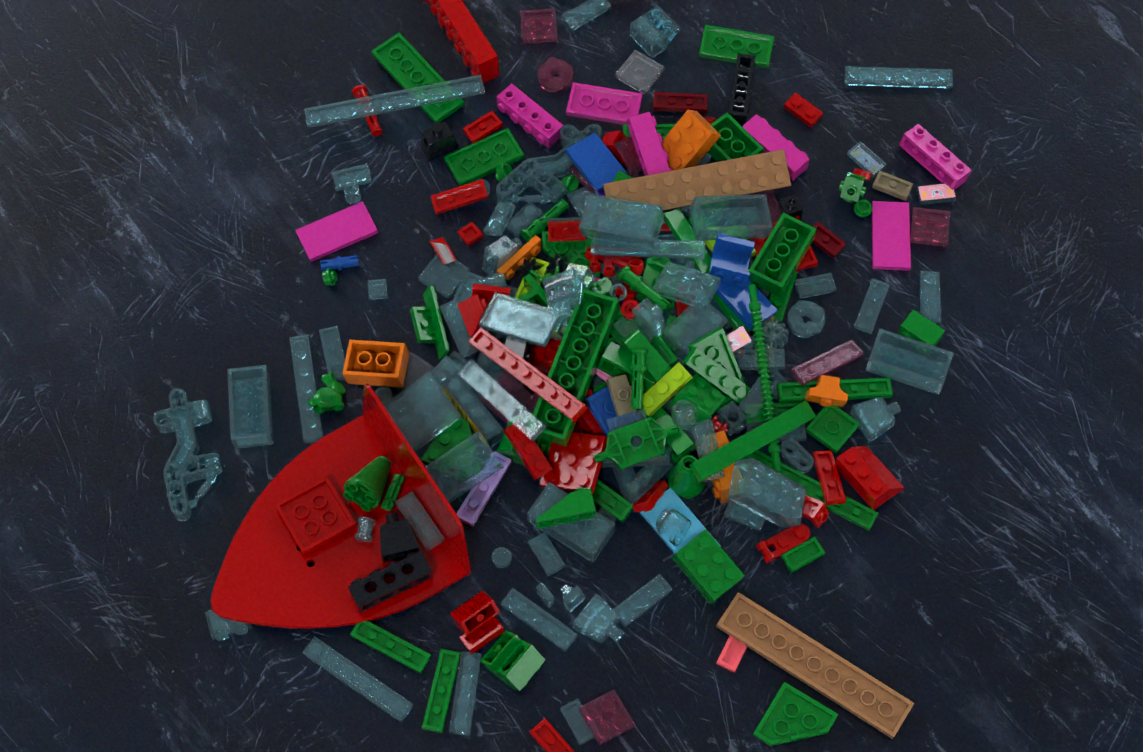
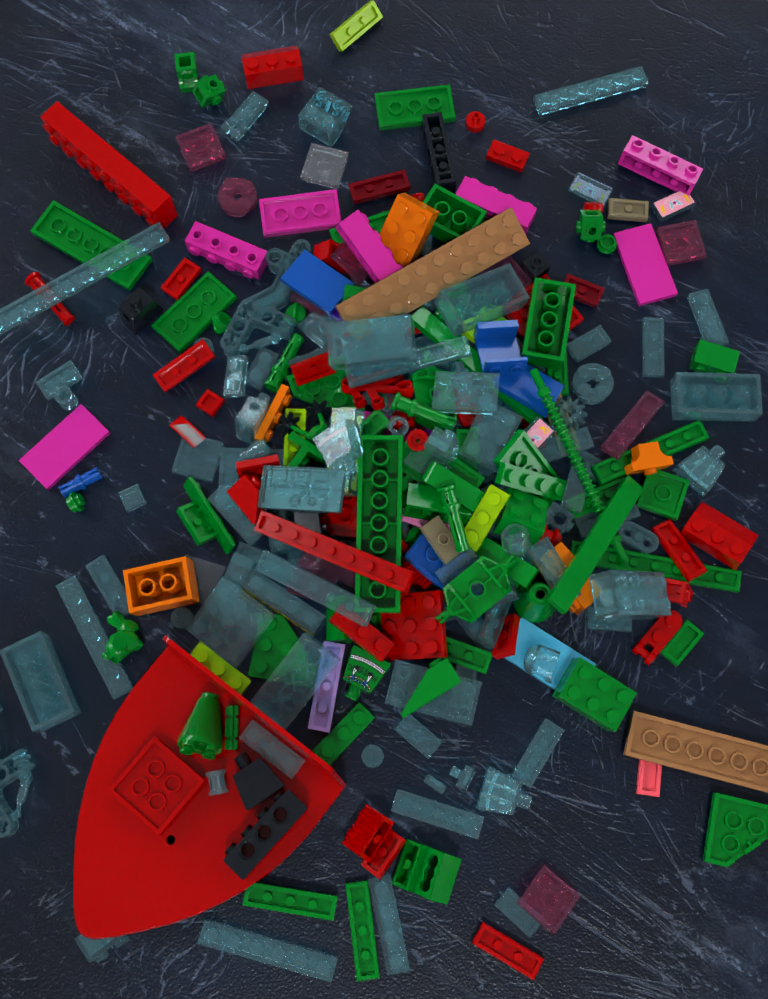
camera: 20 degrees left, 10 degrees up
(488, 530) = (344, 734): none -> green plate
(518, 487) = (363, 673): none -> green torso
(785, 73) = (475, 122): none -> red tile

